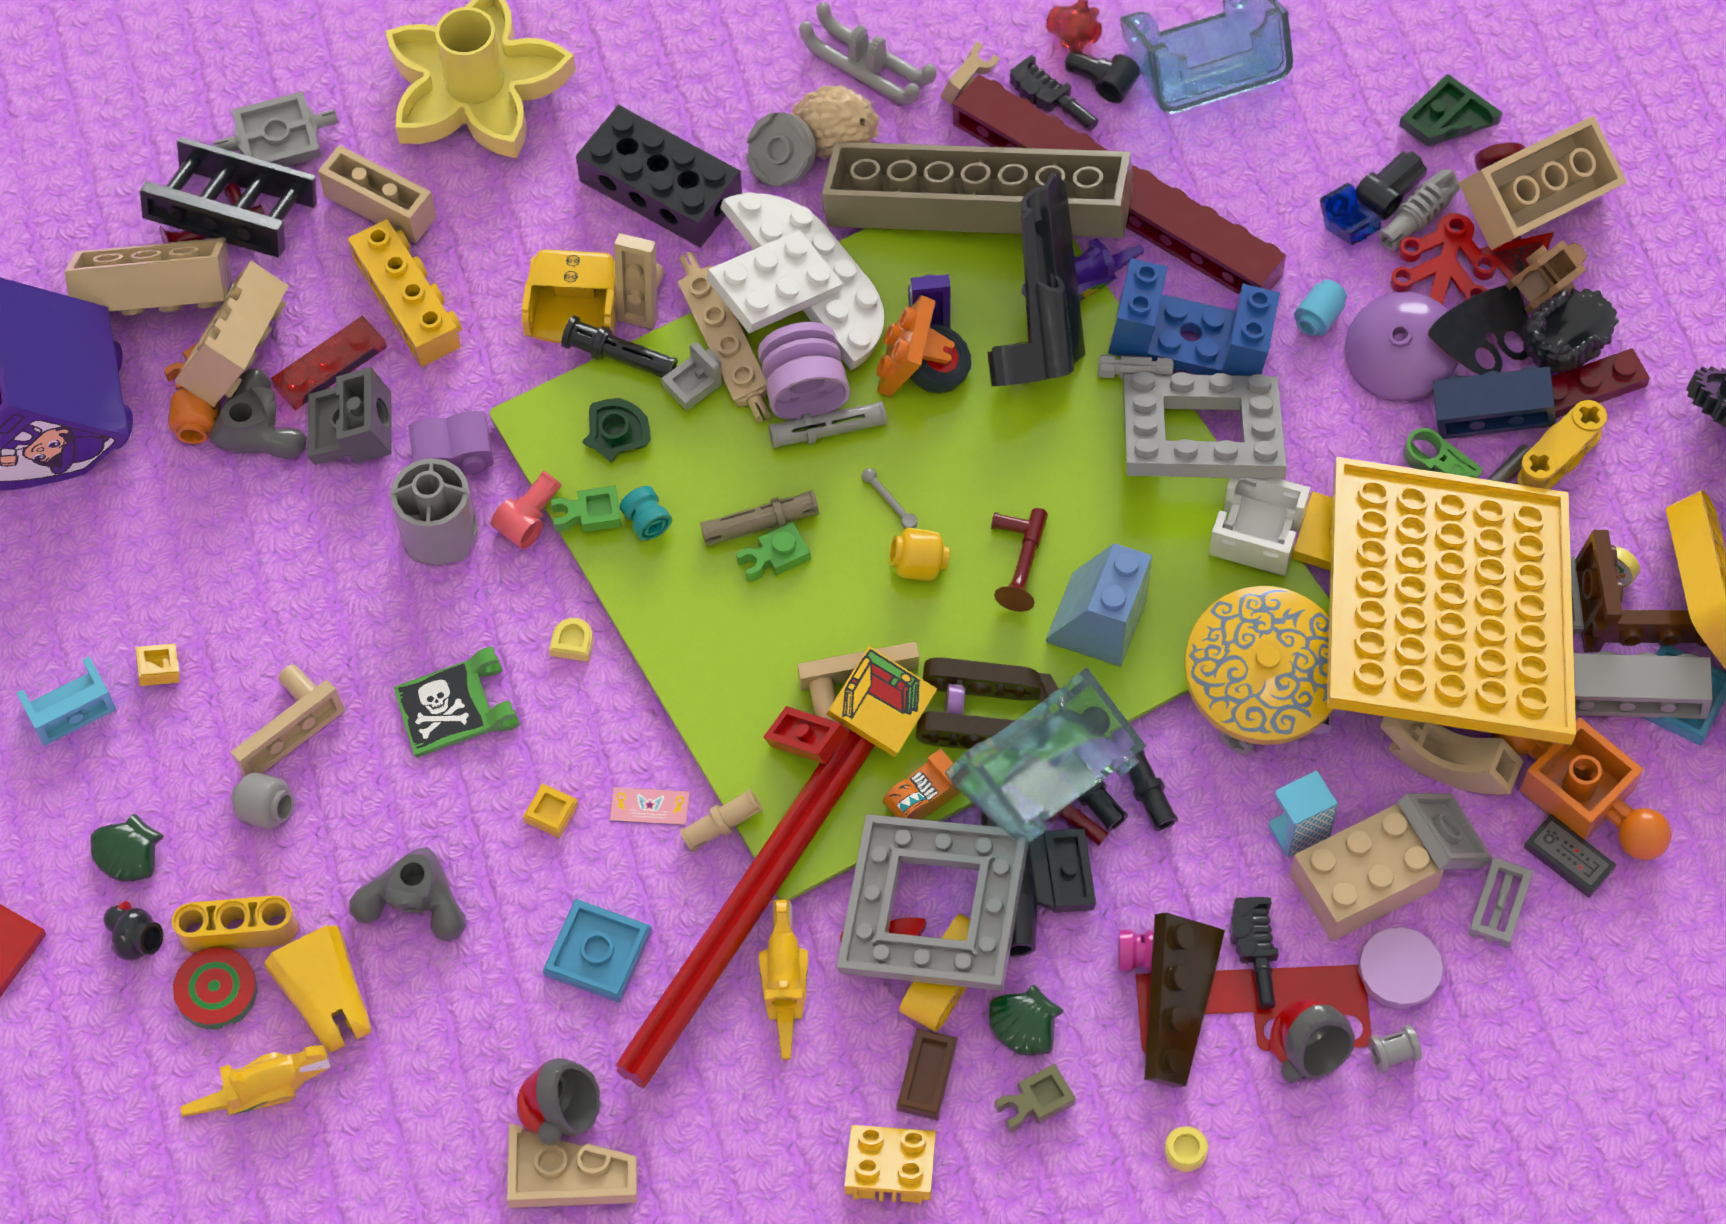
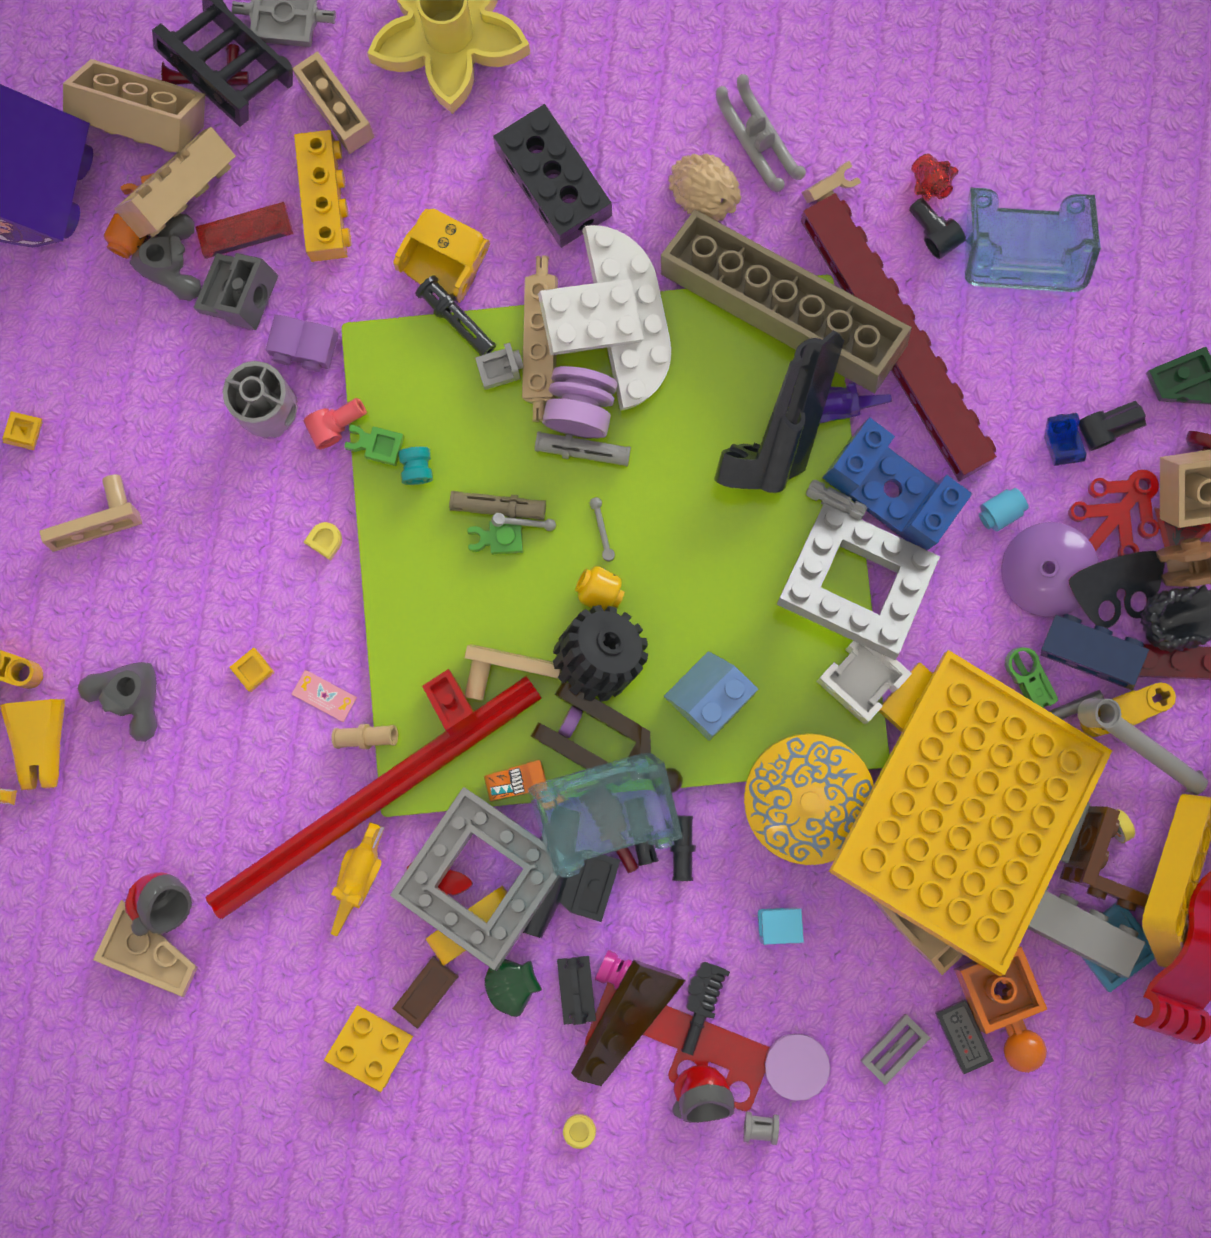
camera: 30 degrees right, 20 degrees up
(262, 800) = (51, 575): light grey head -> none
(453, 705) = (215, 555): flag -> none
(597, 950) = (238, 793): dark azure tile -> none
(617, 428) = (426, 383): dark green animal -> none
(636, 280) = (492, 267): tan piece -> none
(769, 525) = (499, 519): none -> light grey hinge
(781, 149) = (654, 193): light grey tile -> none
(881, 701) = (513, 703): tile -> none
(924, 352) = (677, 423): orange plate -> none
(936, 288) = (703, 381): dark purple plate -> none
(954, 607) = (600, 653): none -> black wheel
(1015, 594) = (695, 603): dark red piece -> none
(1040, 1096) = (496, 1048): olive plate -> none
(1046, 93) = (884, 224): black piece -> none
(1103, 993) = (576, 990): none -> black hinge
(1365, 872) = (808, 986): tan brick -> none
(1420, 208) = (1124, 455): light grey hinge -> none
(1445, 831) = (878, 984): light grey tile -> none
(1540, 446) = (1131, 736): none -> light grey piece

